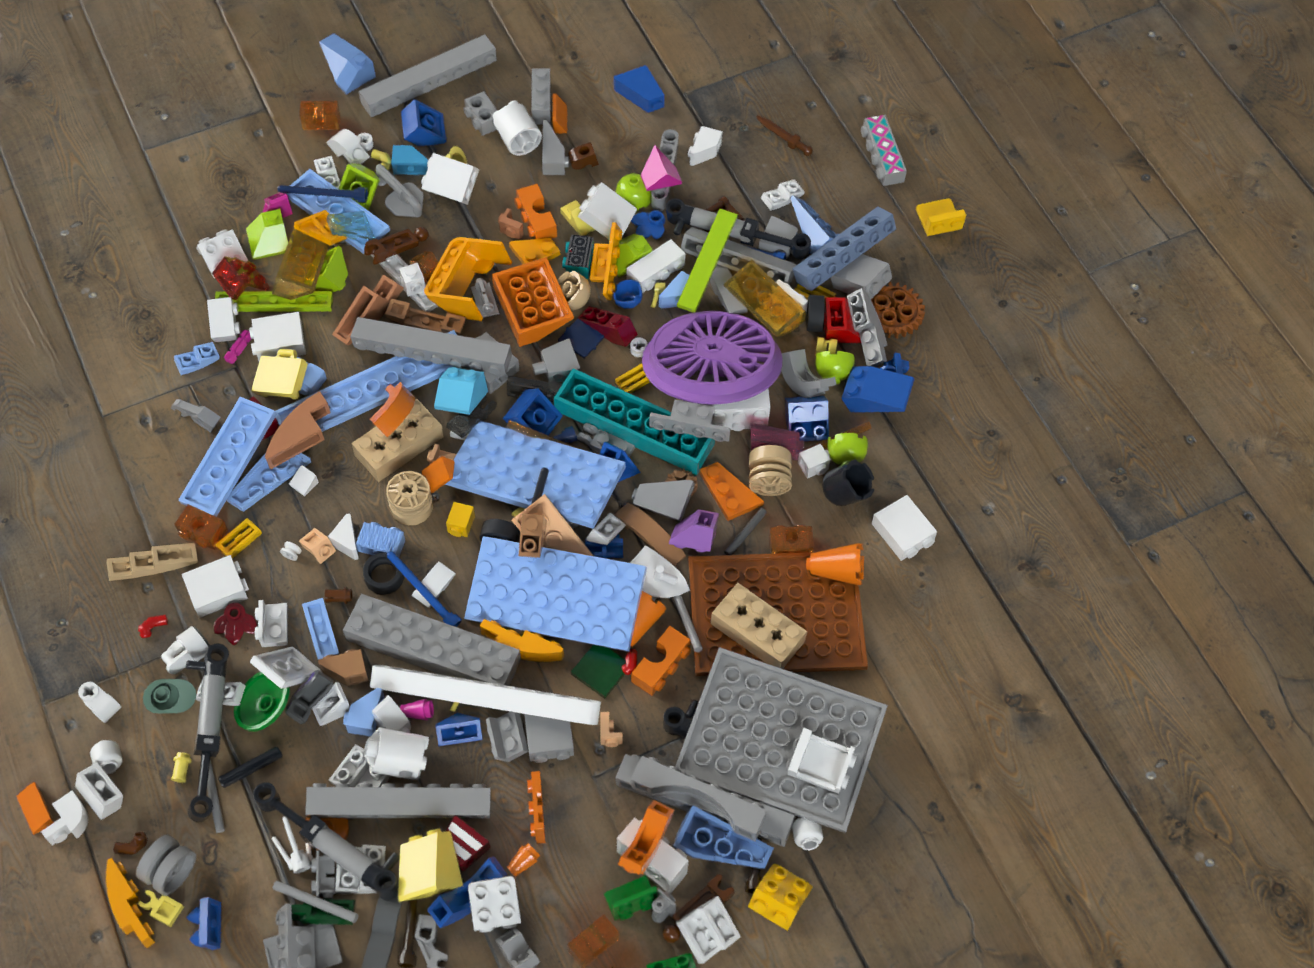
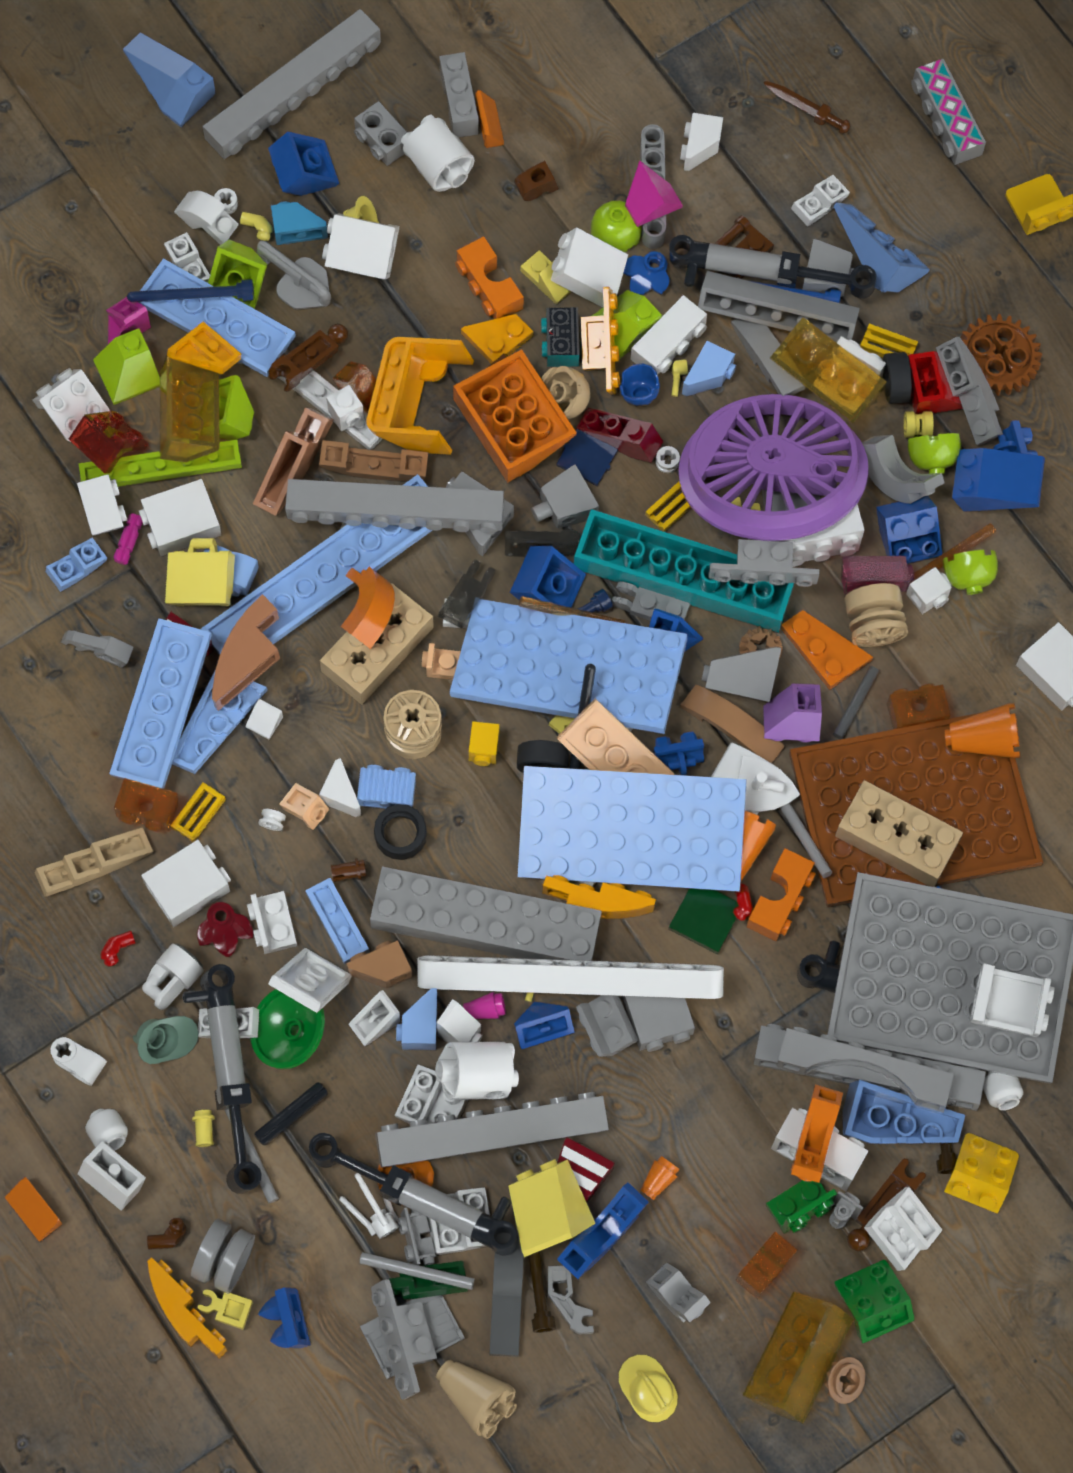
camera: 10 degrees left, 10 degrees up
(73, 819) = (86, 1213): white brick -> none
(308, 696) = (345, 1011): dark grey animal -> none
(319, 115) = (154, 170): clear orange brick -> none
(350, 225) = (245, 340): clear light blue wing -> none
(435, 582) = (468, 837): white slope -> none
(439, 473) = (444, 684): orange slope -> none
(448, 618) = (499, 880): blue piece -> none
(460, 390) = (446, 562): medium azure slope -> none
(484, 298) = (445, 418): light grey hinge -> none
(494, 904) = (639, 1240): white bracket -> none
(509, 226) = (458, 306): nougat bracket -> none
(532, 535) = (592, 761): medium nougat slope -> none
(536, 807) = (656, 1084): orange wing -> none
(553, 153) = (493, 181): light grey slope -> none
(606, 530) = (678, 730): white slope -> none
(607, 733) = (729, 1002): light nougat bracket -> none
(640, 88) = (595, 63): blue slope -> none
(707, 261) = (740, 323): lime tile -> none
(844, 248) = (922, 277): sand blue brick -> none
(848, 483) = (981, 619): black cylinder -> none
(863, 273) = (948, 311): light grey brick -> none

